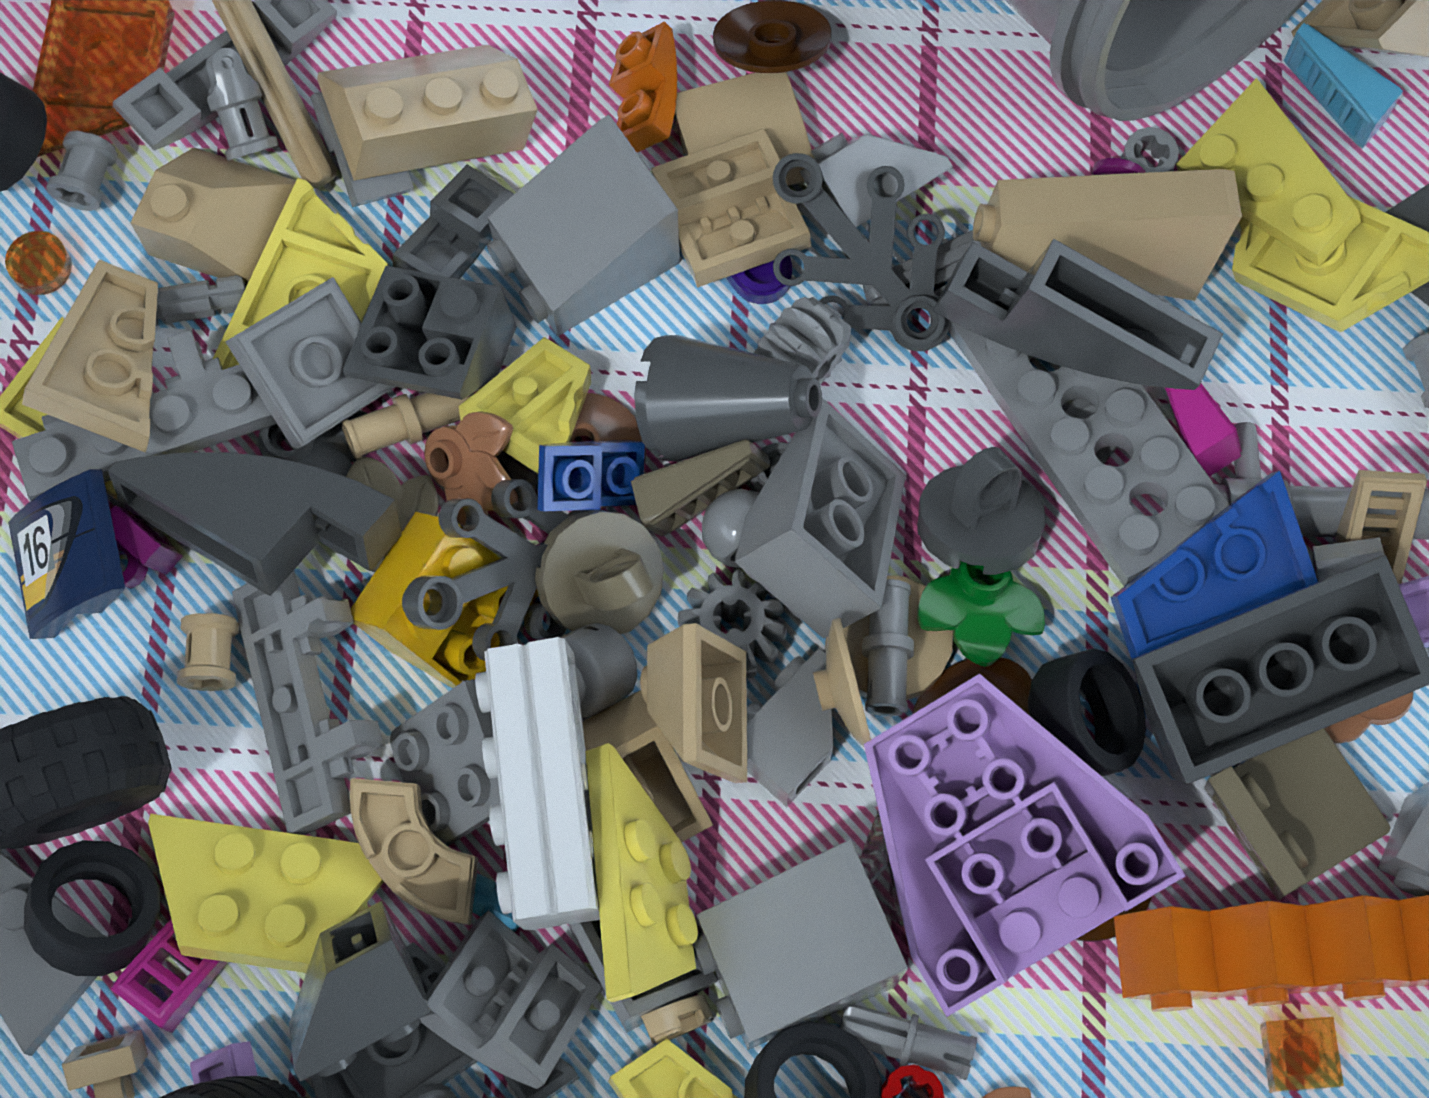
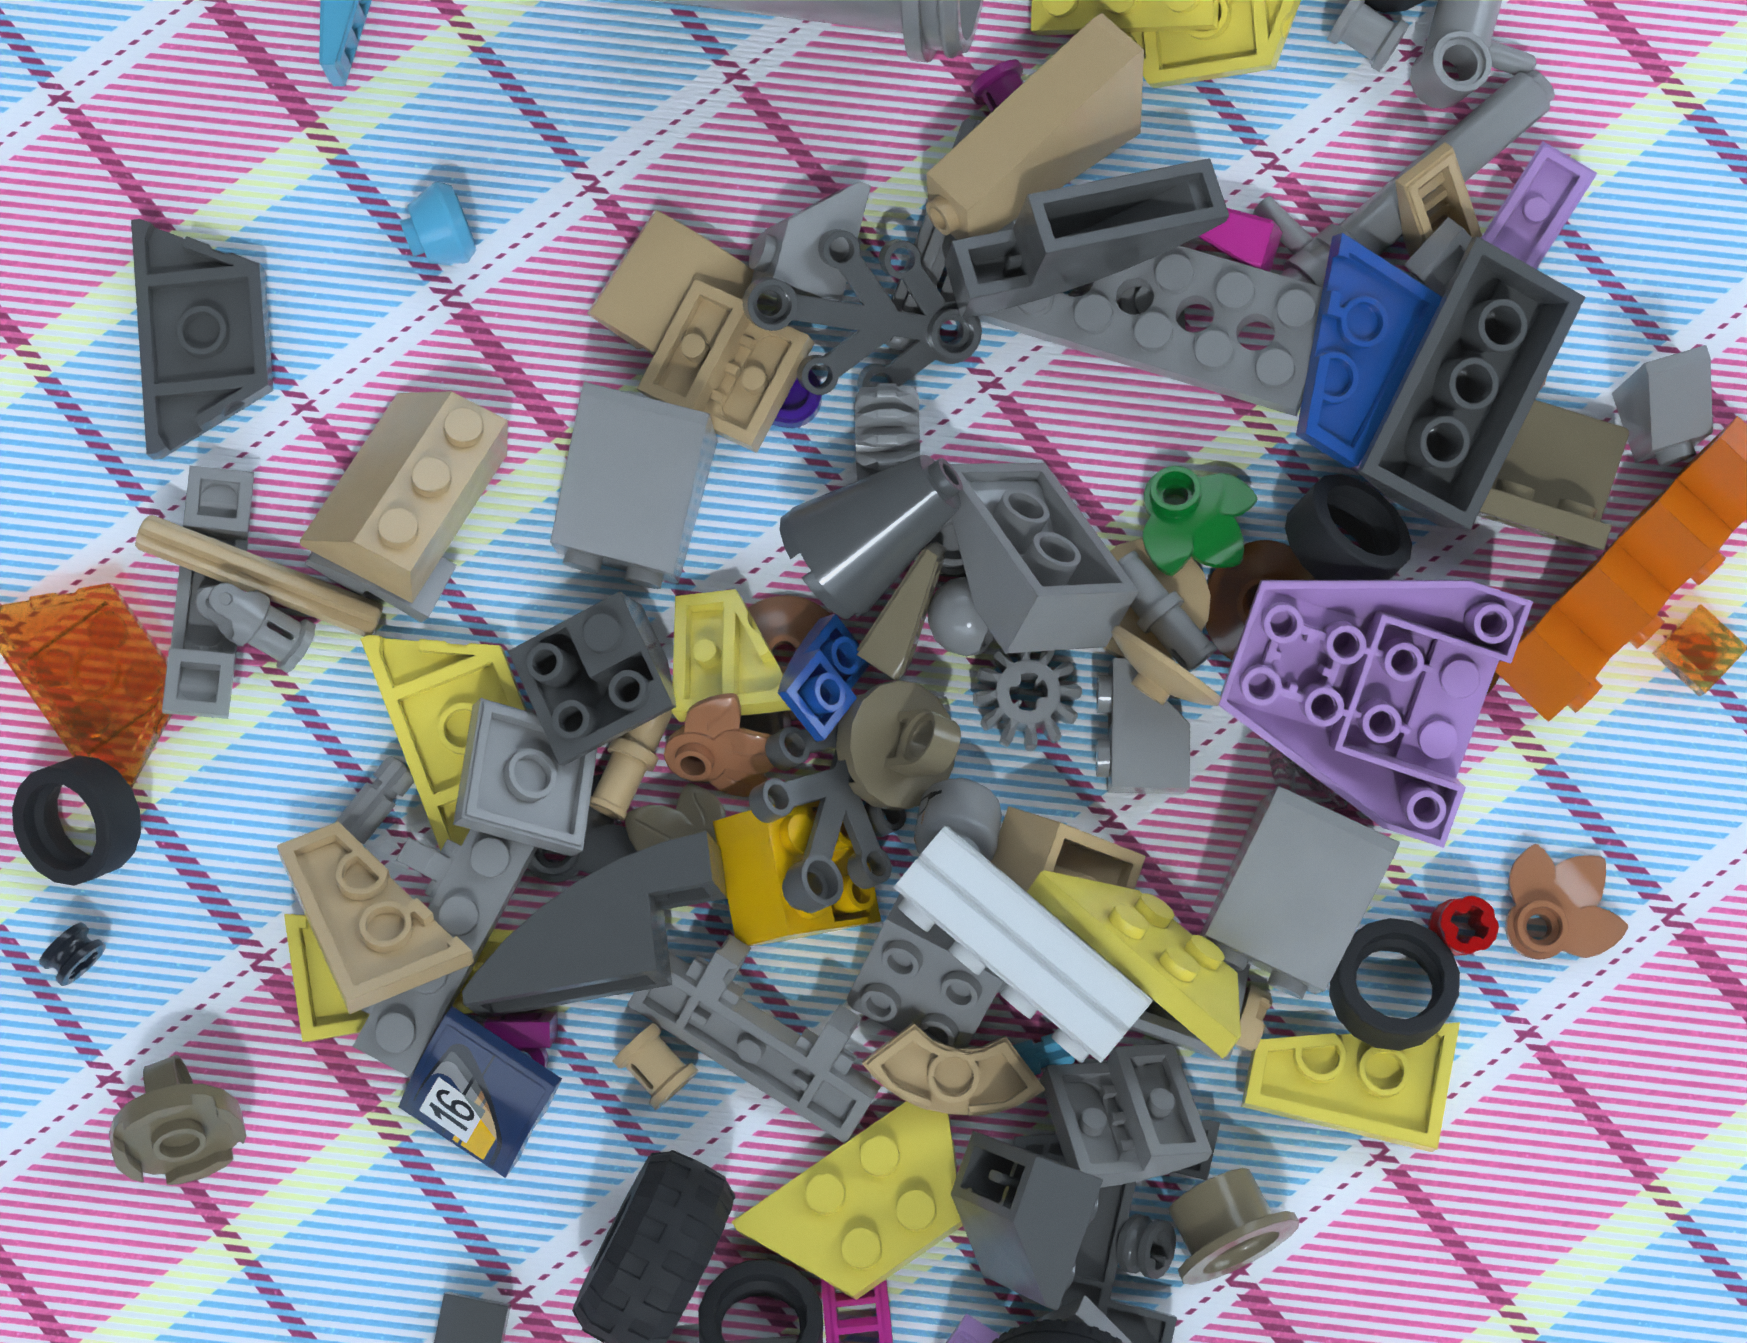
camera: 40 degrees left, 10 degrees up
(38, 262) = (213, 886): clear orange tile -> none
(82, 170) = (177, 783): light grey bush -> none
(210, 213) = (320, 722): tan slope -> none
(456, 226) = (520, 570): dark grey slope -> none
(648, 84) = (563, 317): orange slope -> none
(699, 699) = (1073, 783): tan slope -> none
(772, 36) = (626, 193): reddish brown dish -> none
(910, 1040) = (1427, 884): light grey axle -> none
(981, 514) = (1136, 450): dark grey tile -> none
(1158, 142) = (1003, 23): light grey bush -> none

